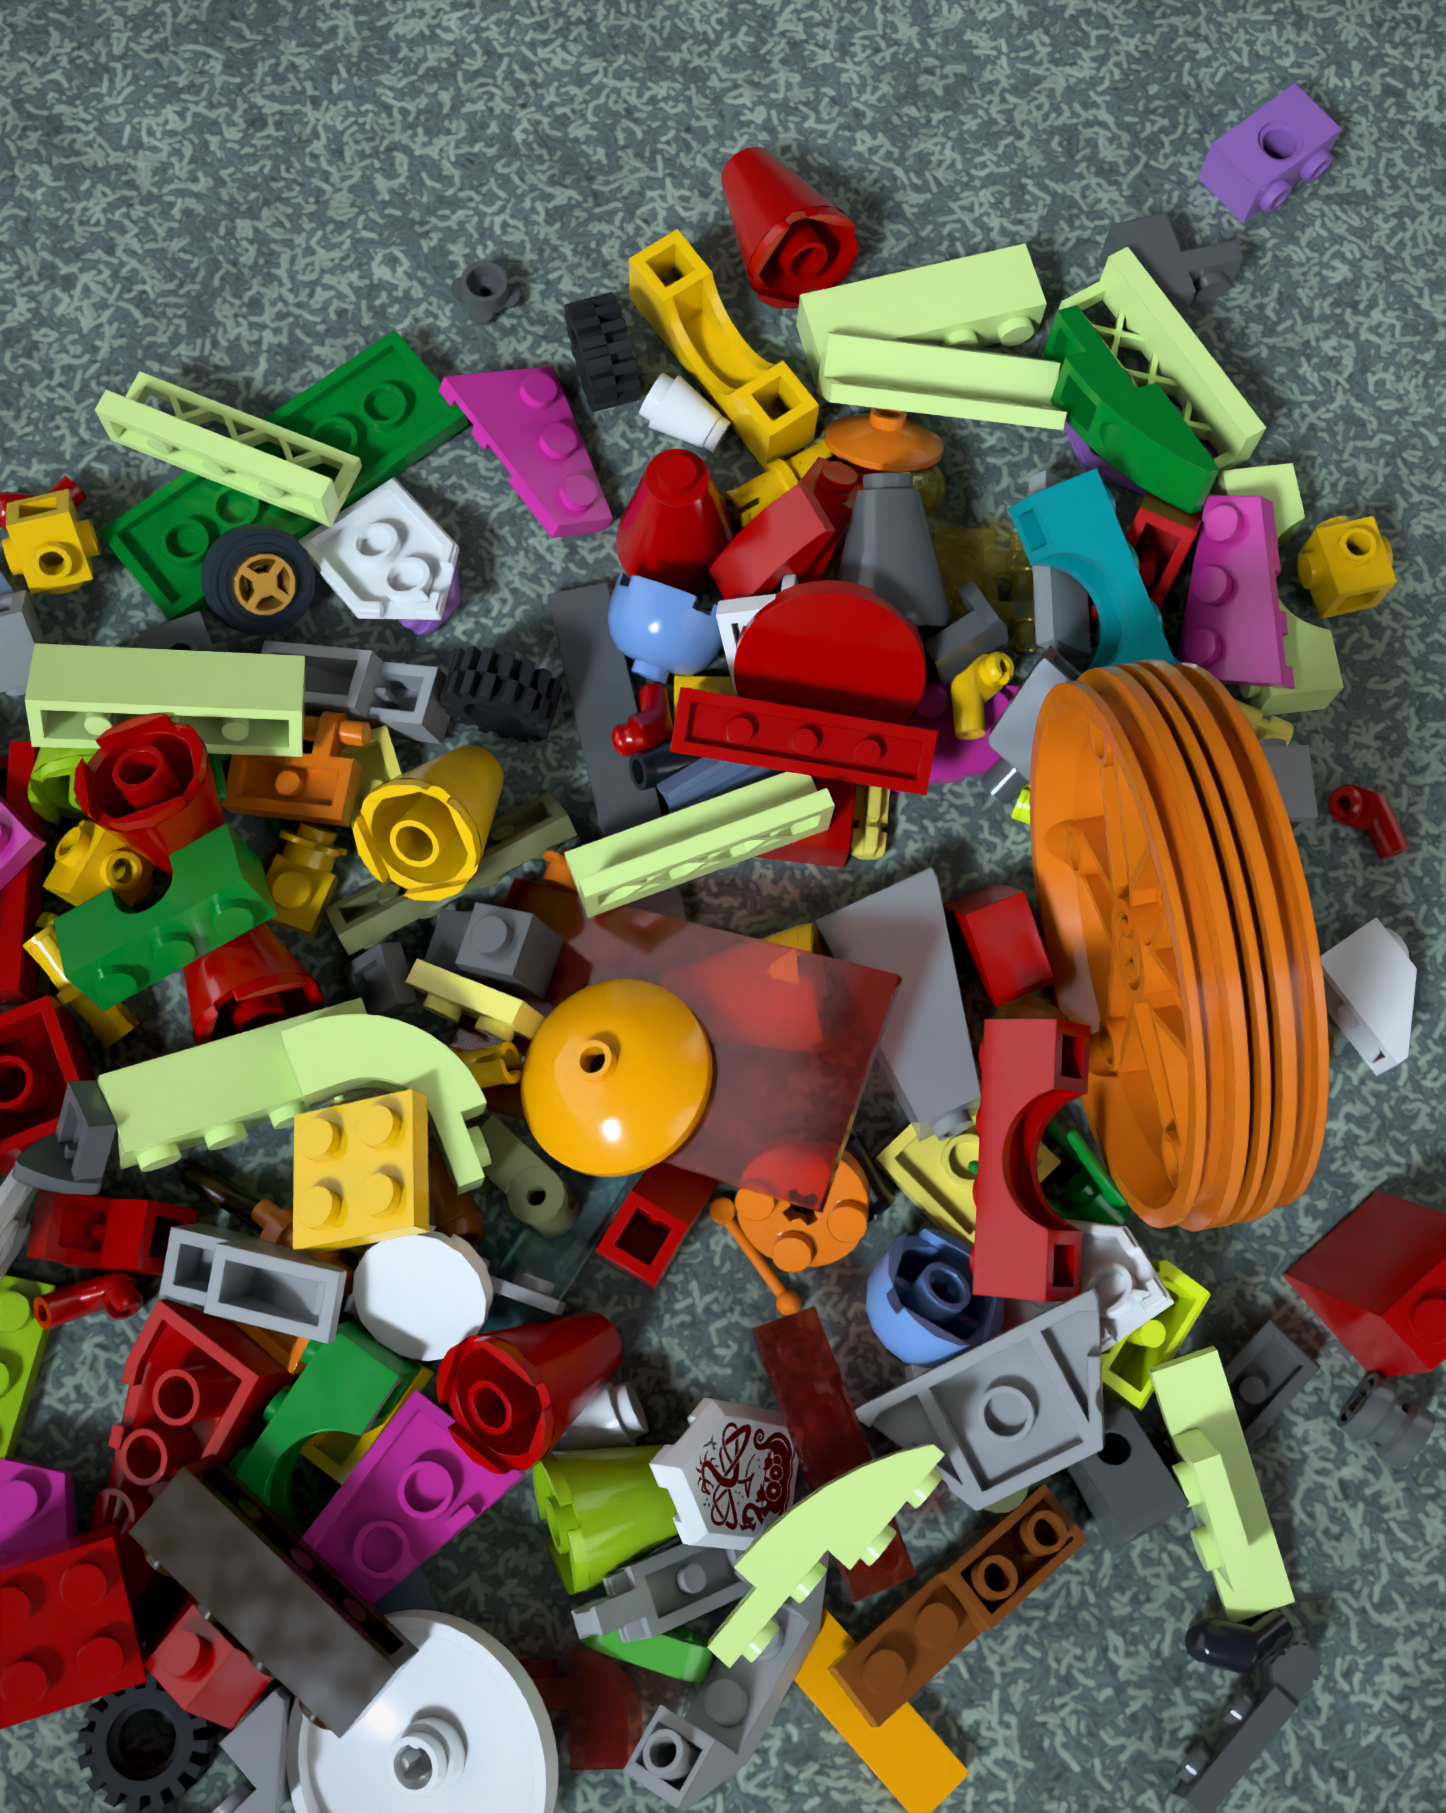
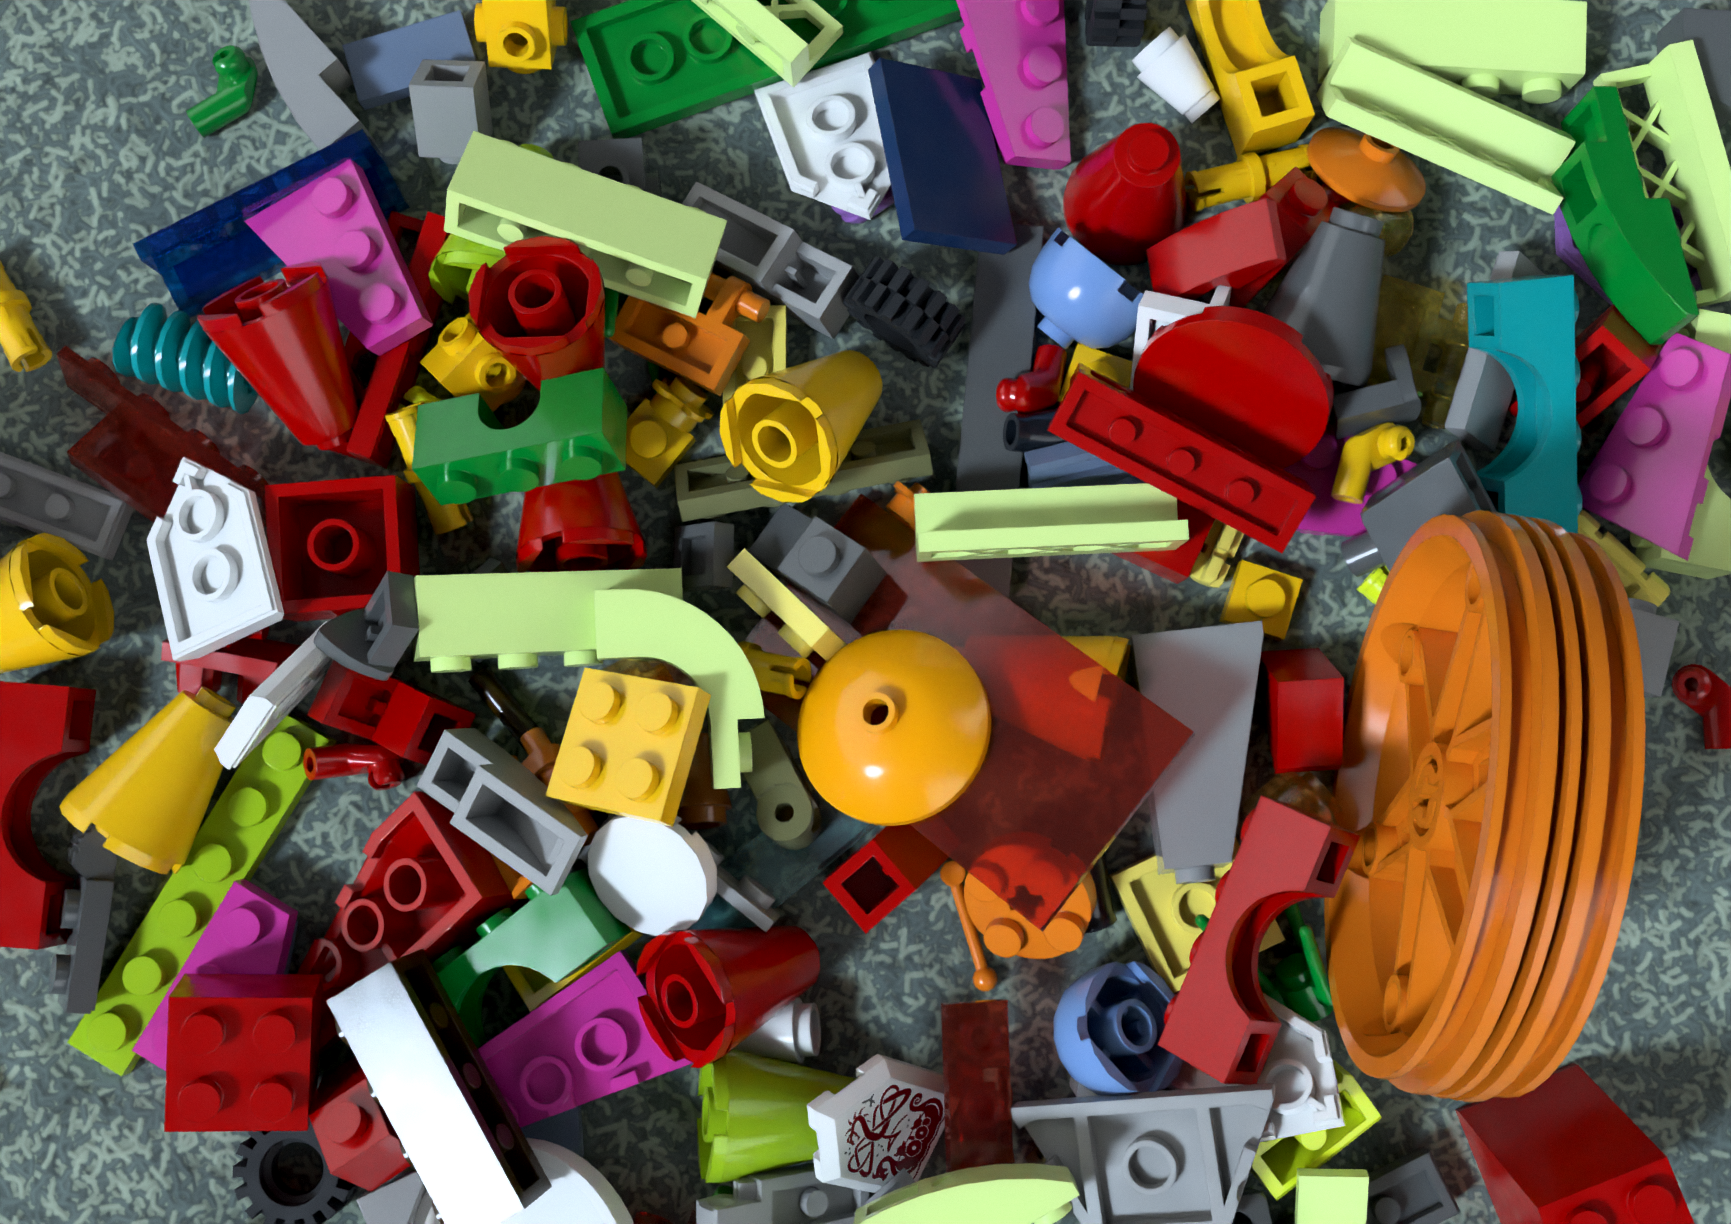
camera: 25 degrees right, 10 degrees up
(276, 594) = (718, 141): black wheel -> none
(490, 546) = (941, 158): none -> dark blue tile
(927, 846) = (1261, 596): none -> yellow plate
(1372, 993) = (1659, 884): white slope -> none

